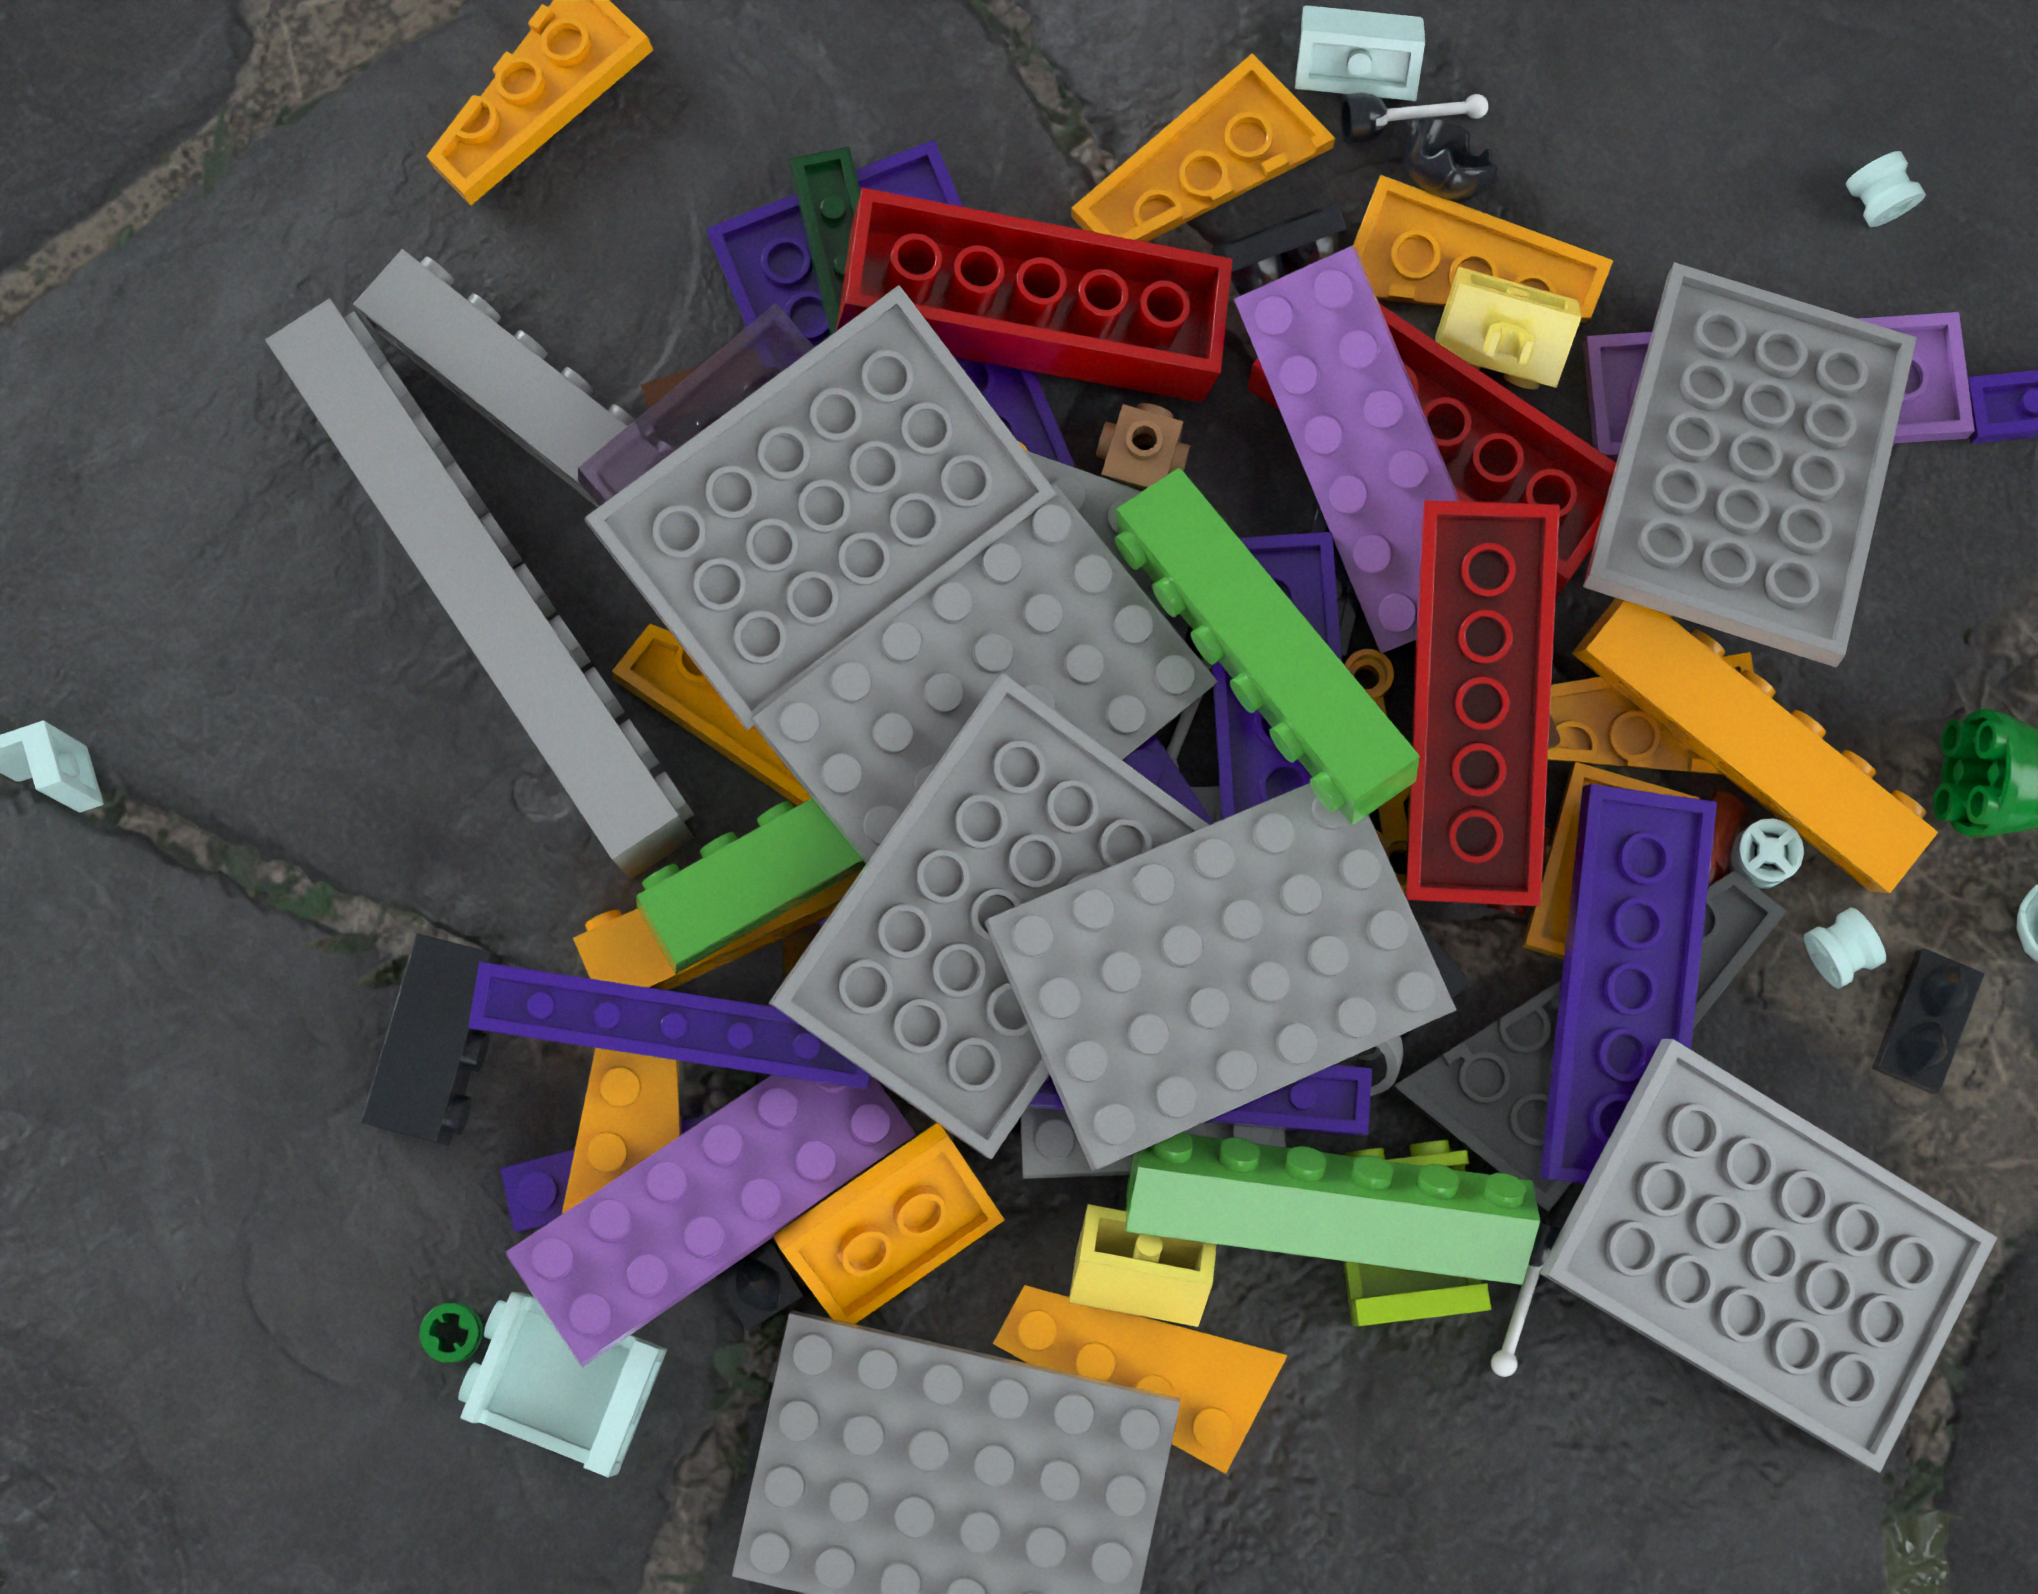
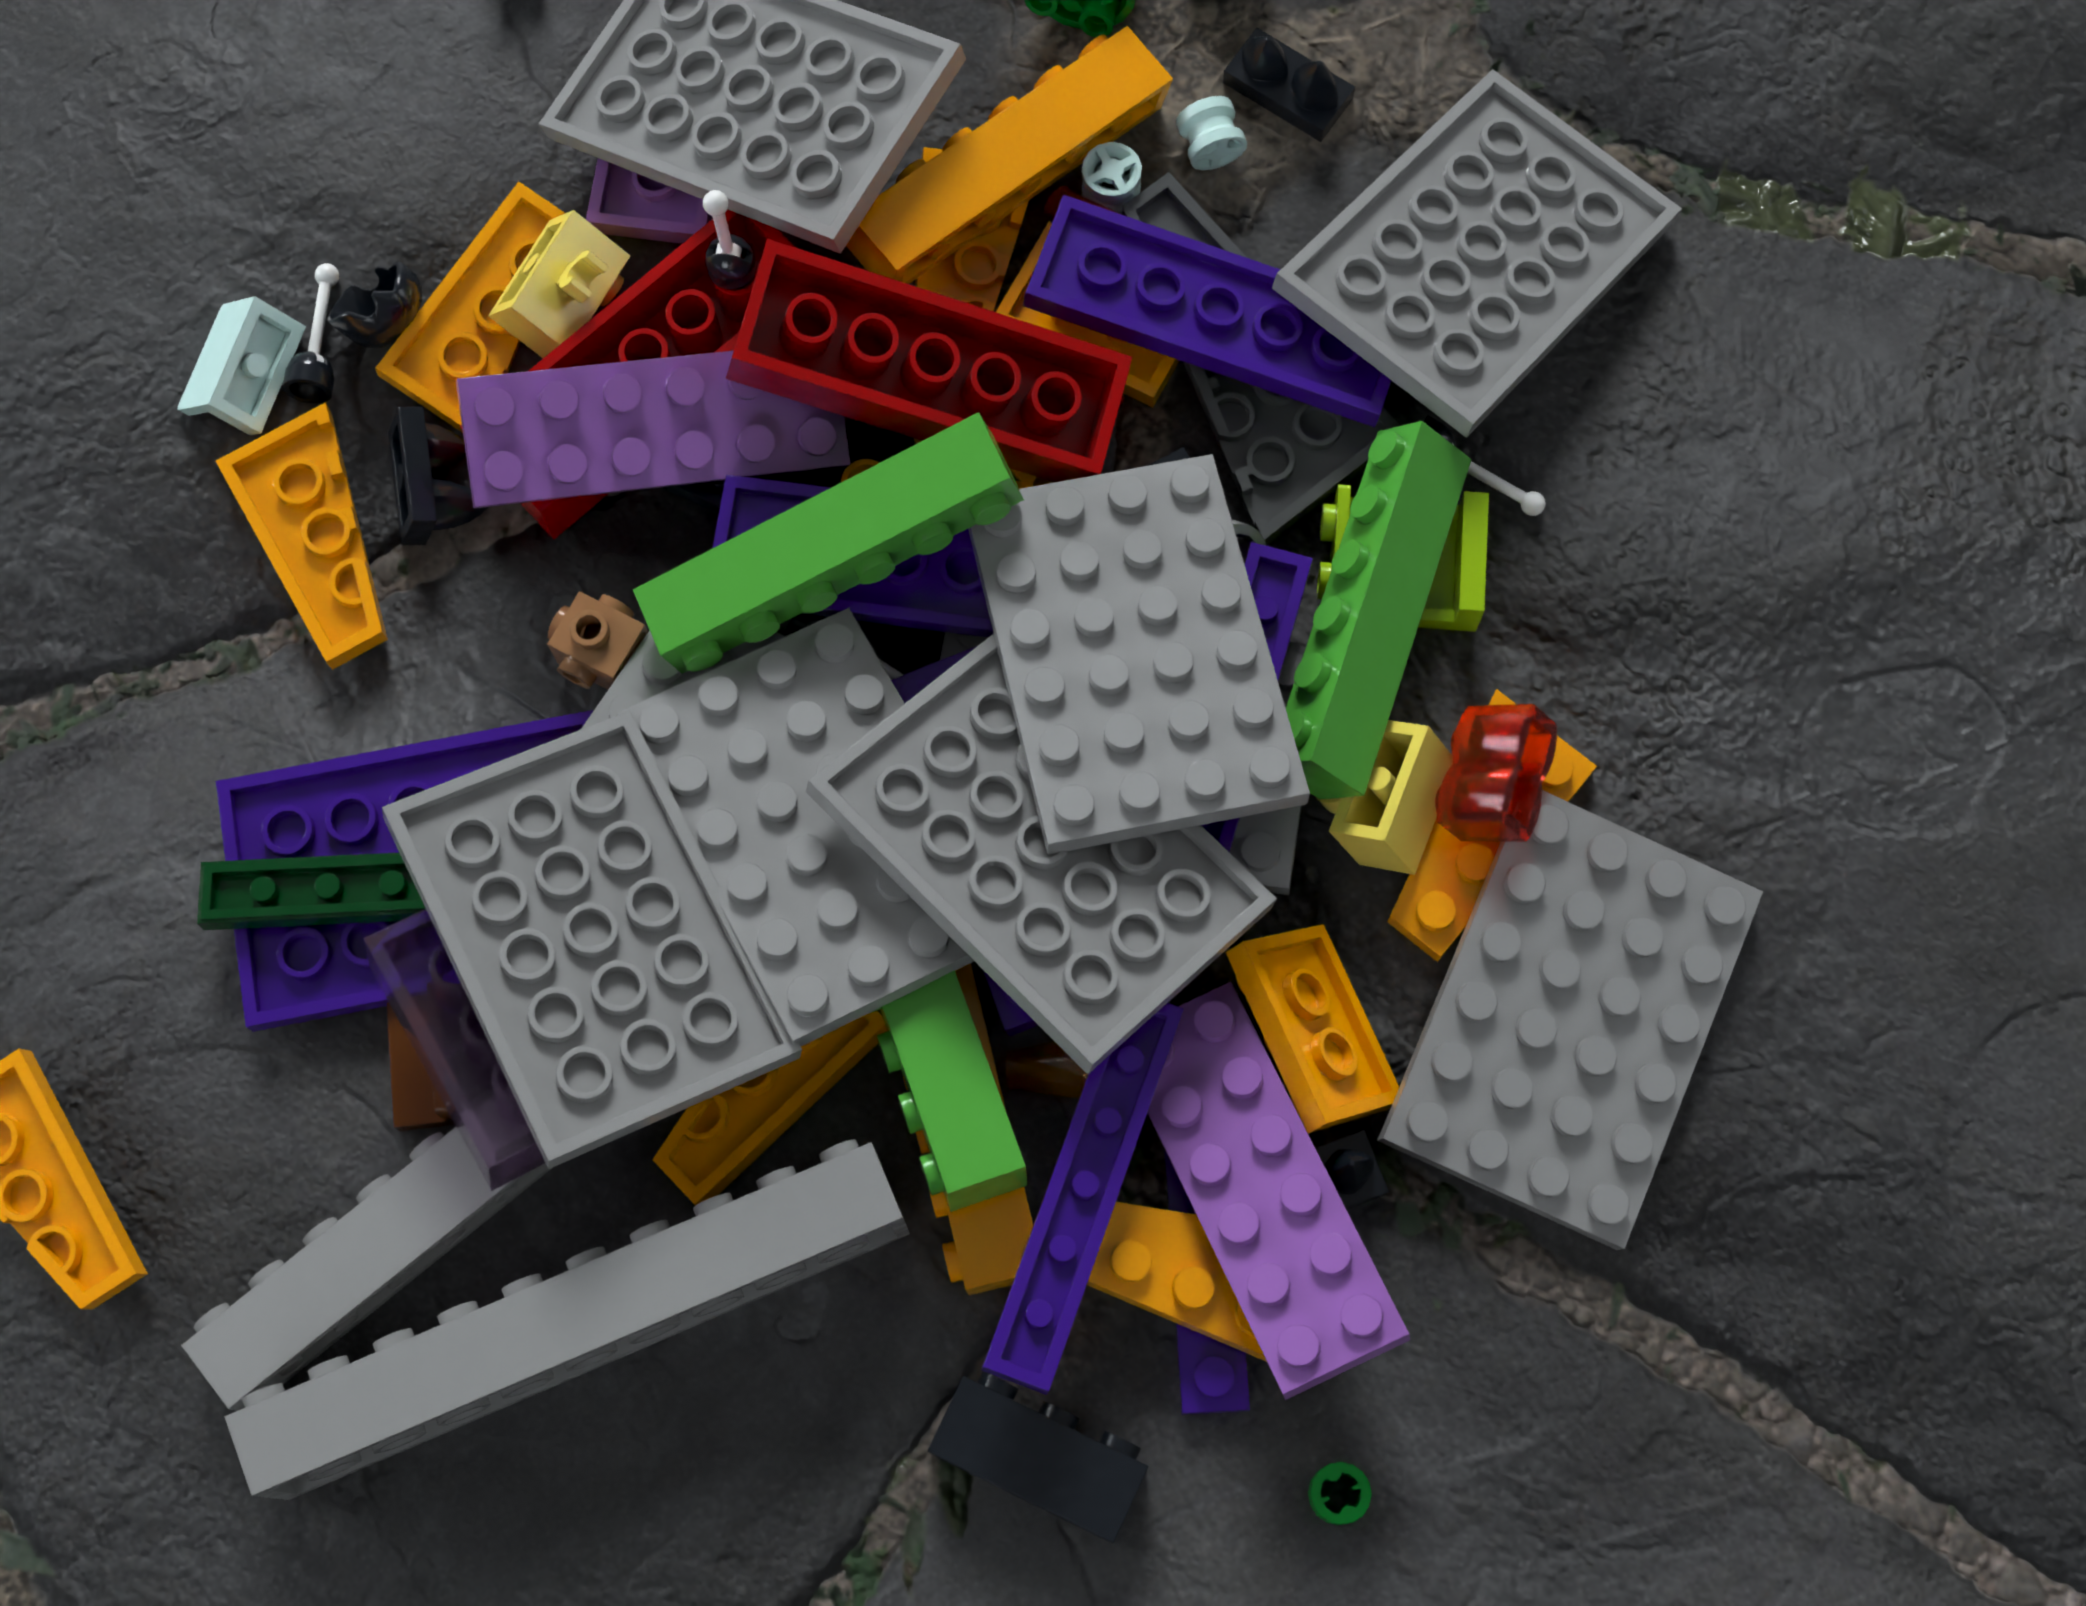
camera: 80 degrees left, 5 degrees down
(545, 1397) = (1416, 1396): light aqua panel -> none
(1044, 294) = (411, 700): red brick -> none
(1182, 1366) = (1496, 773): none -> clear red brick
(1564, 474) = (724, 252): none -> black hinge

